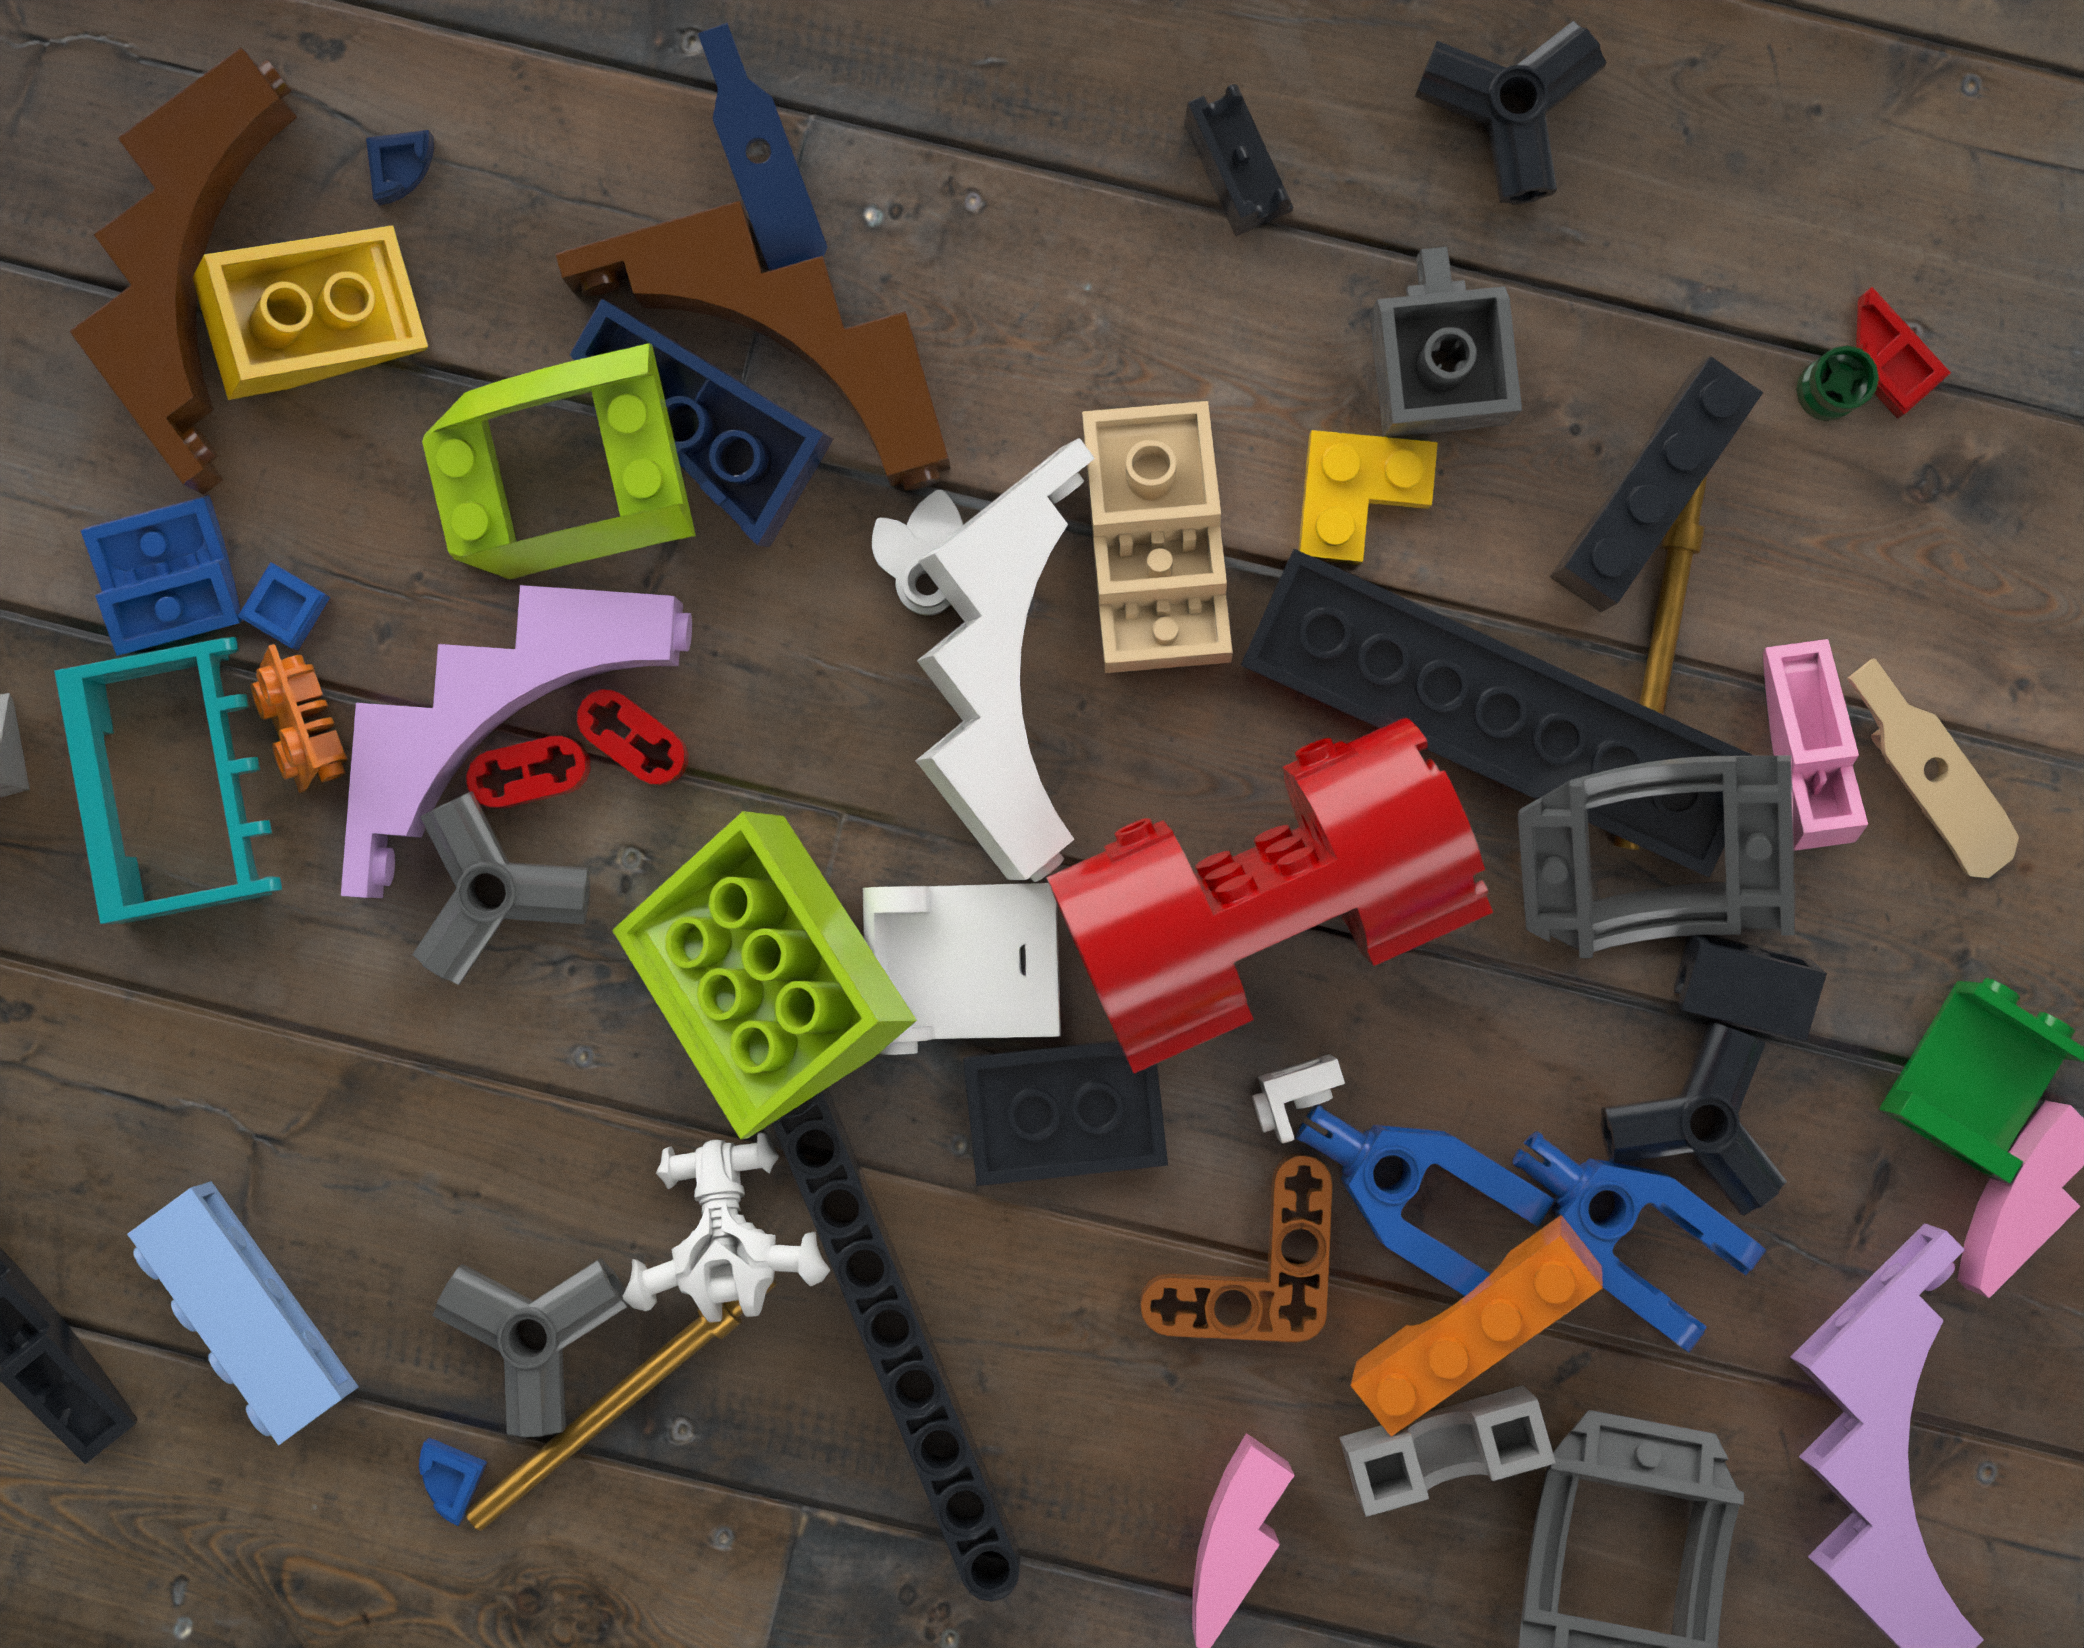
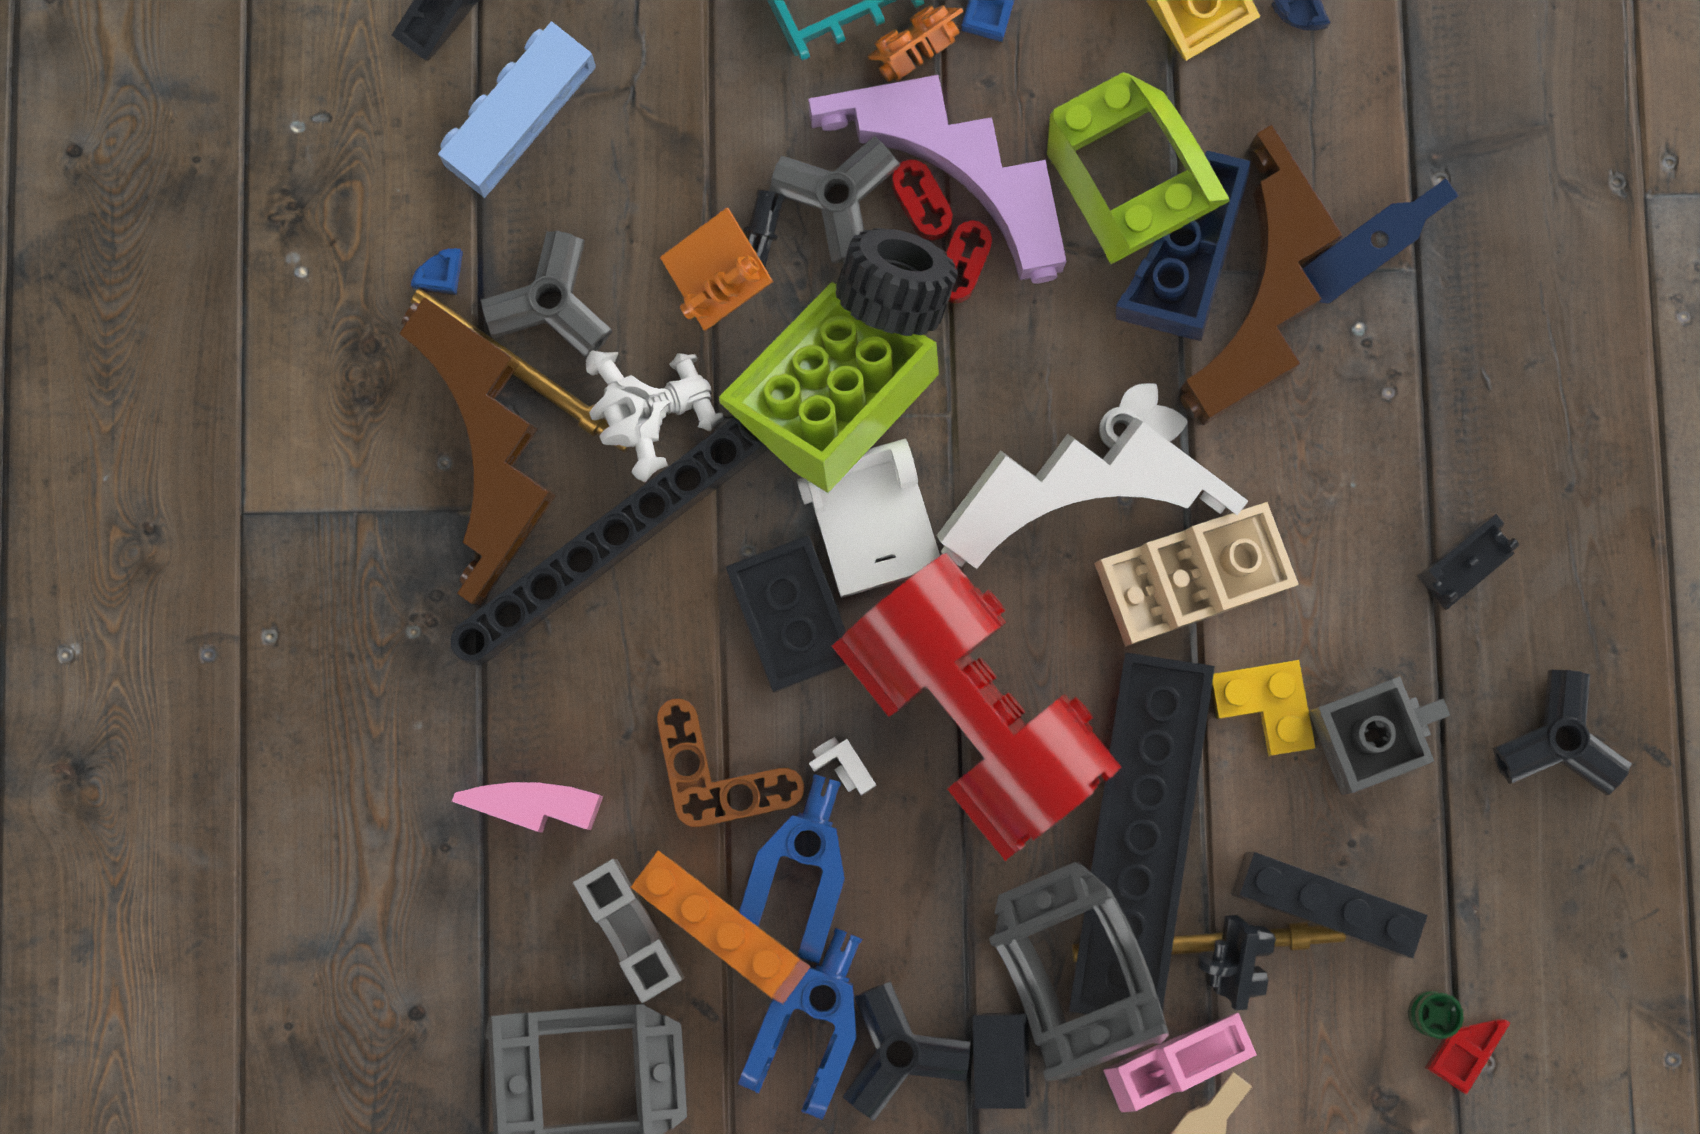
camera: 70 degrees right, 5 degrees down
(517, 1013) = (764, 222): none -> black axle
(552, 1090) = (715, 270): none -> orange hinge
(640, 844) = (896, 281): none -> black tyre
(796, 1471) = (504, 498): none -> reddish brown arch
(1701, 635) = (1233, 961): none -> black hips

